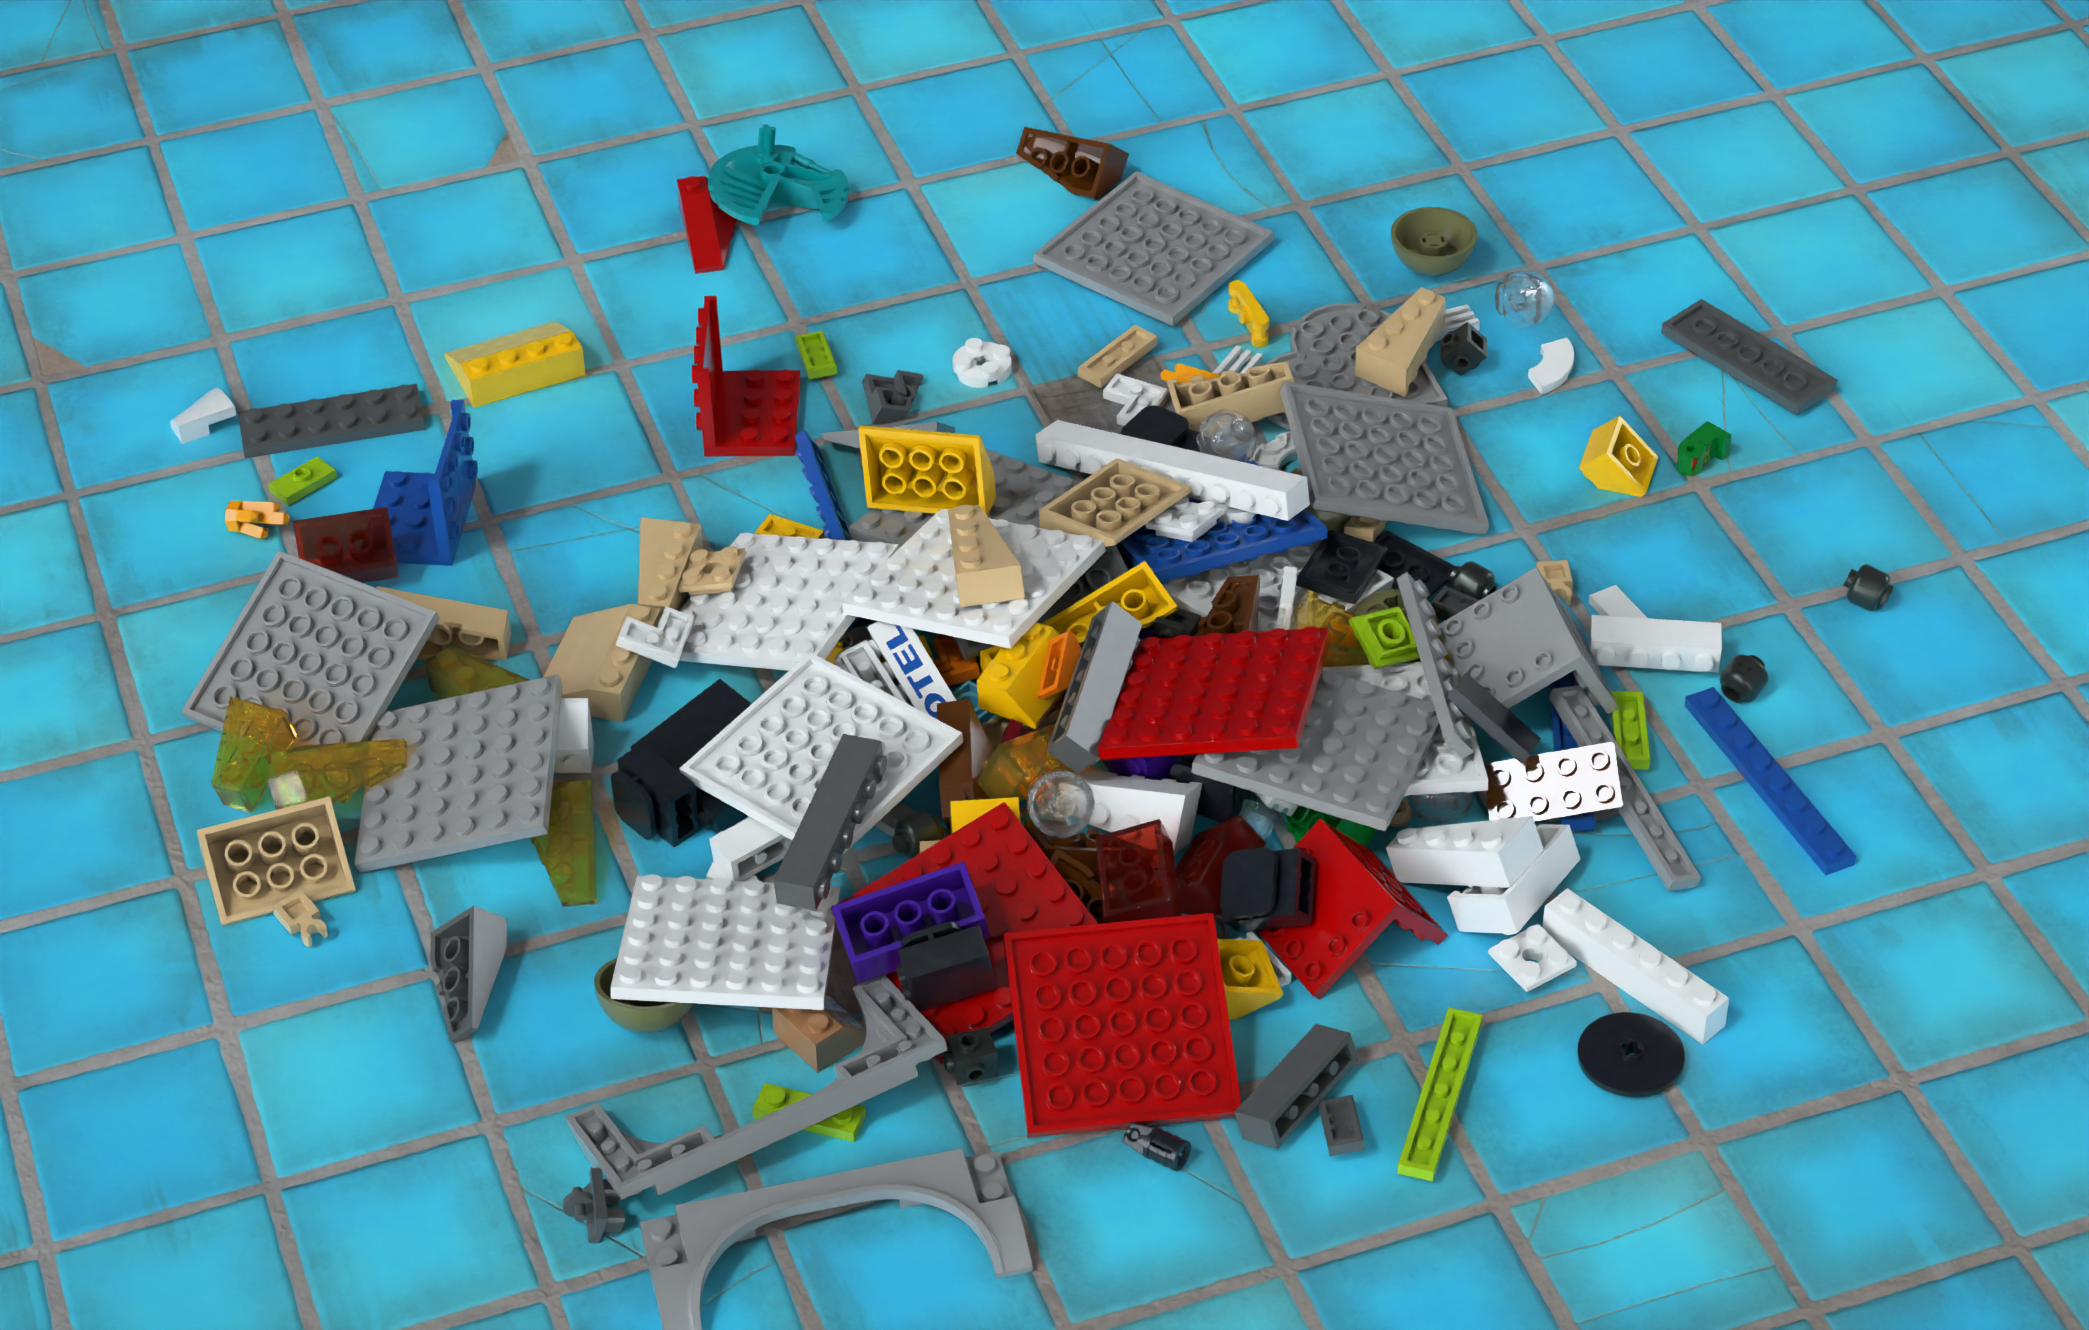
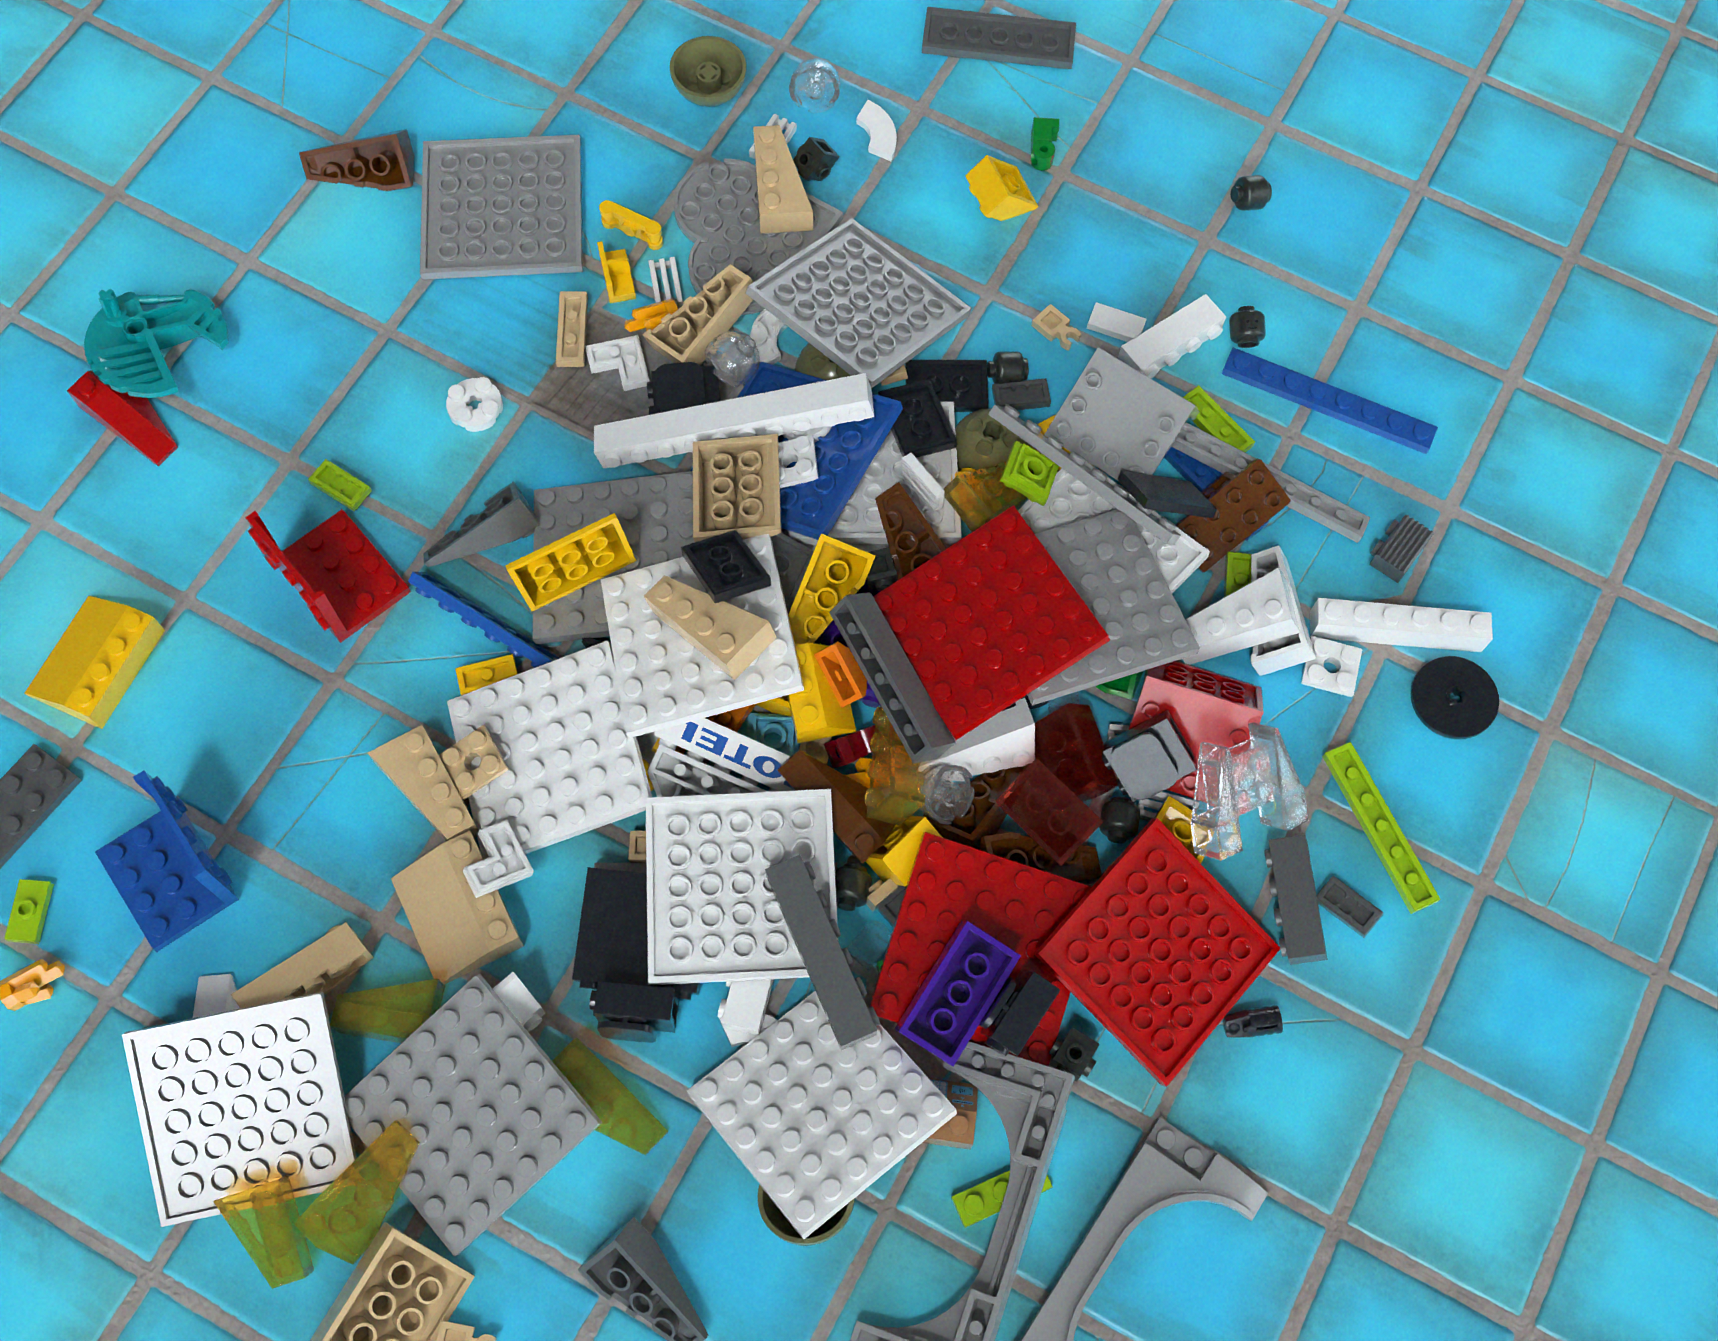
camera: 45 degrees left, 25 degrees up
(349, 544) = (151, 966): clear red slope -> none
(890, 397) = (435, 484): dark grey slope -> none
(1035, 526) = (726, 566): none -> black tile
(1196, 338) = (616, 274): none -> yellow panel
(1326, 947) = (1239, 781): none -> clear wedge
(1705, 917) = (1401, 548): none -> dark grey brick

